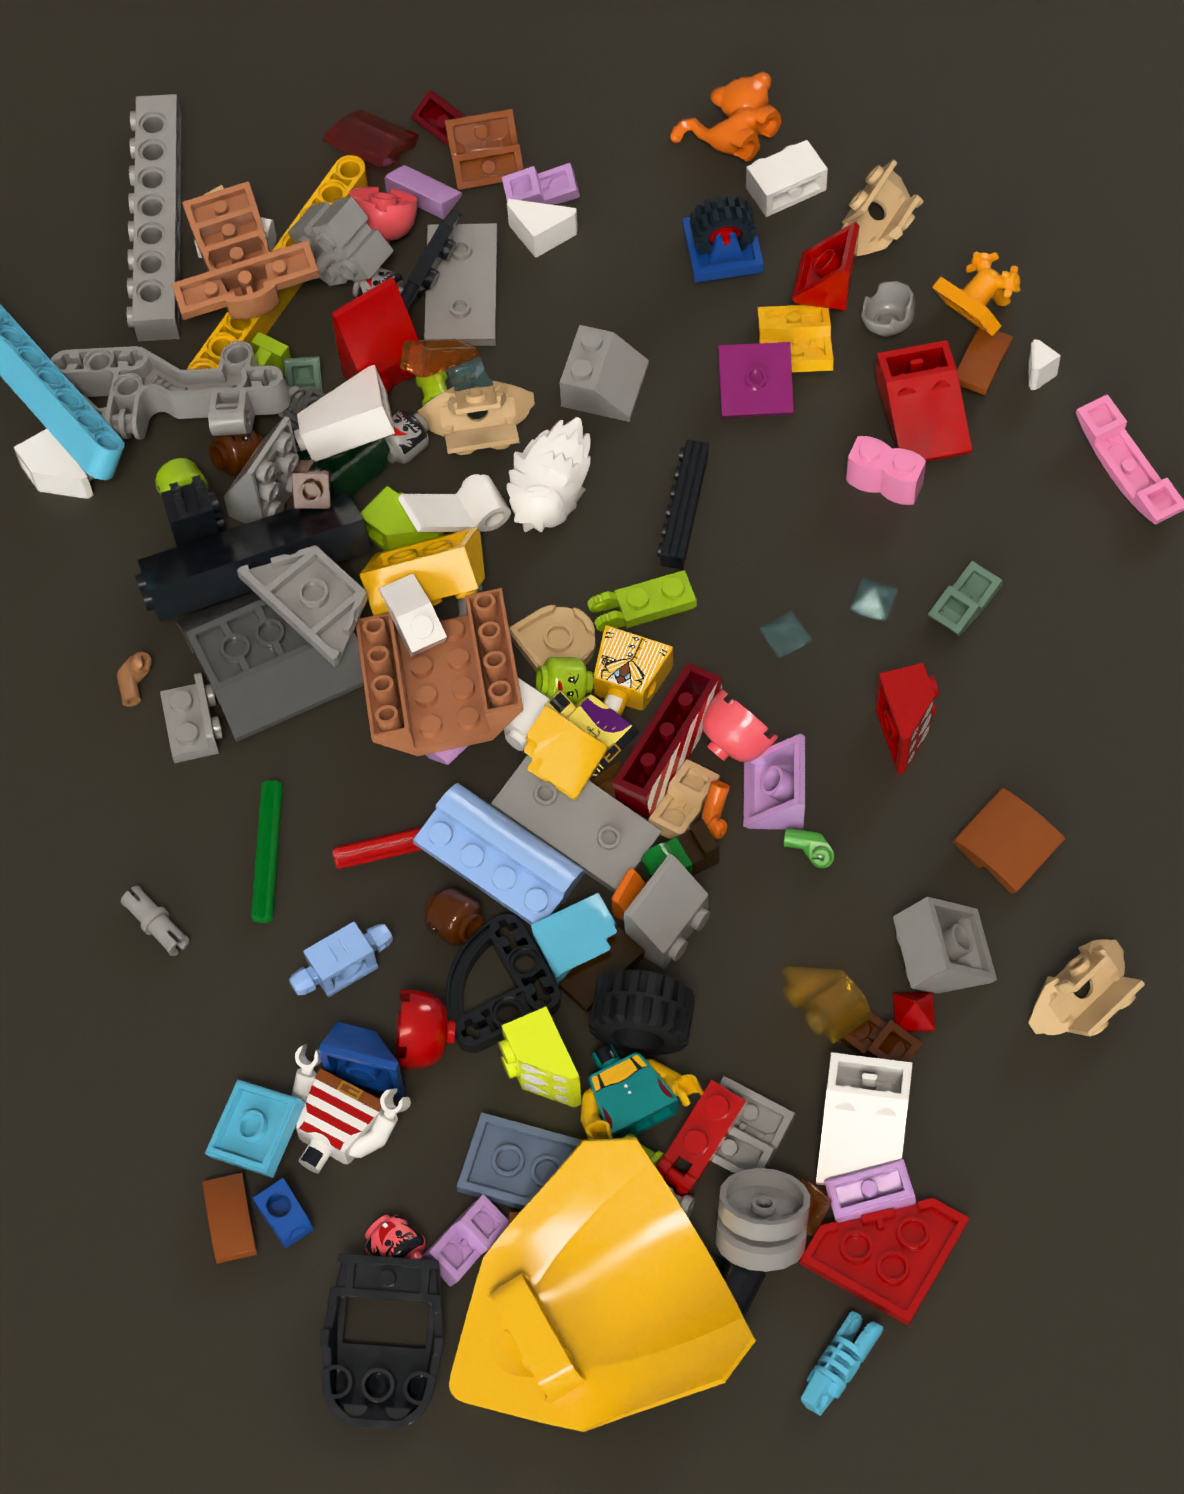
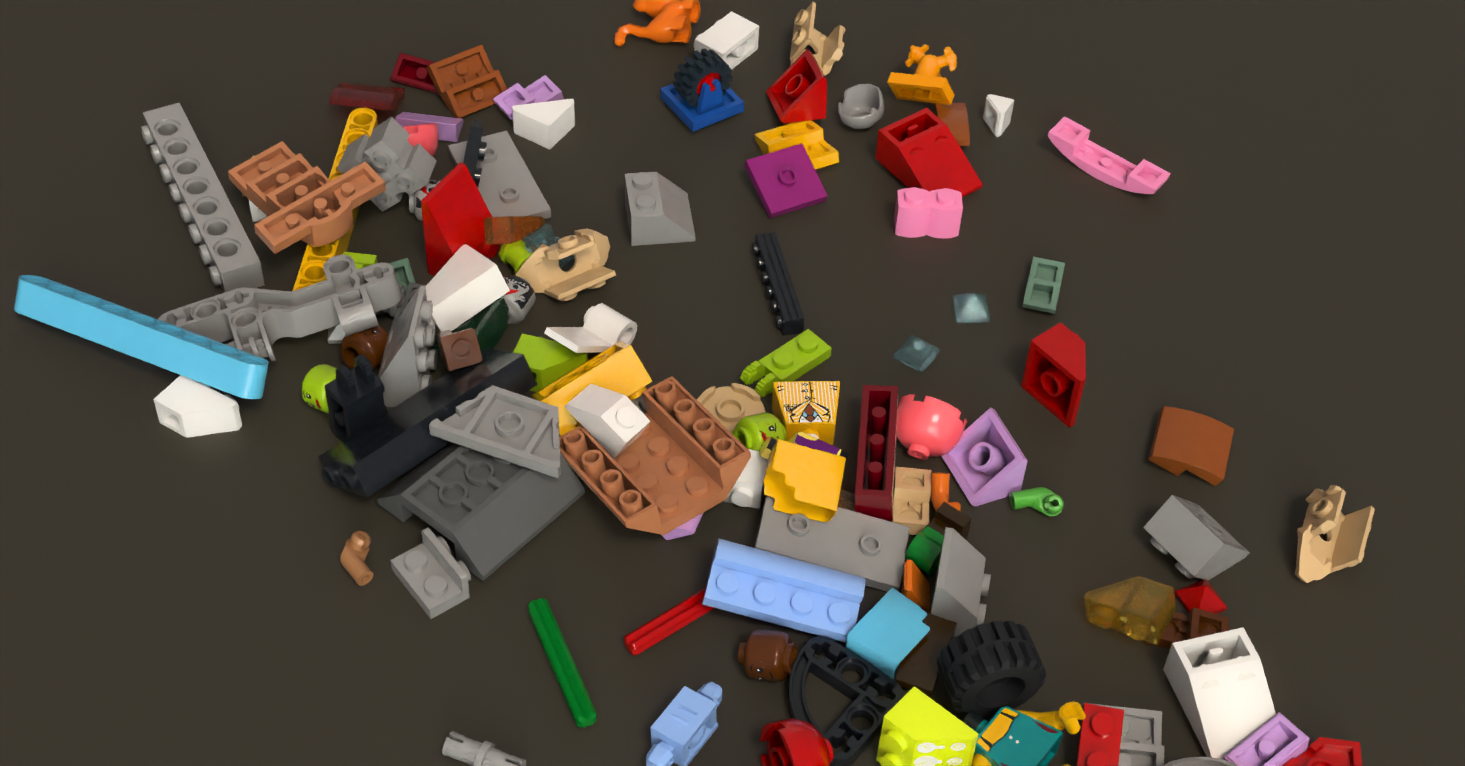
camera: 30 degrees left, 15 degrees down
(549, 476) = (660, 287): white head -> none

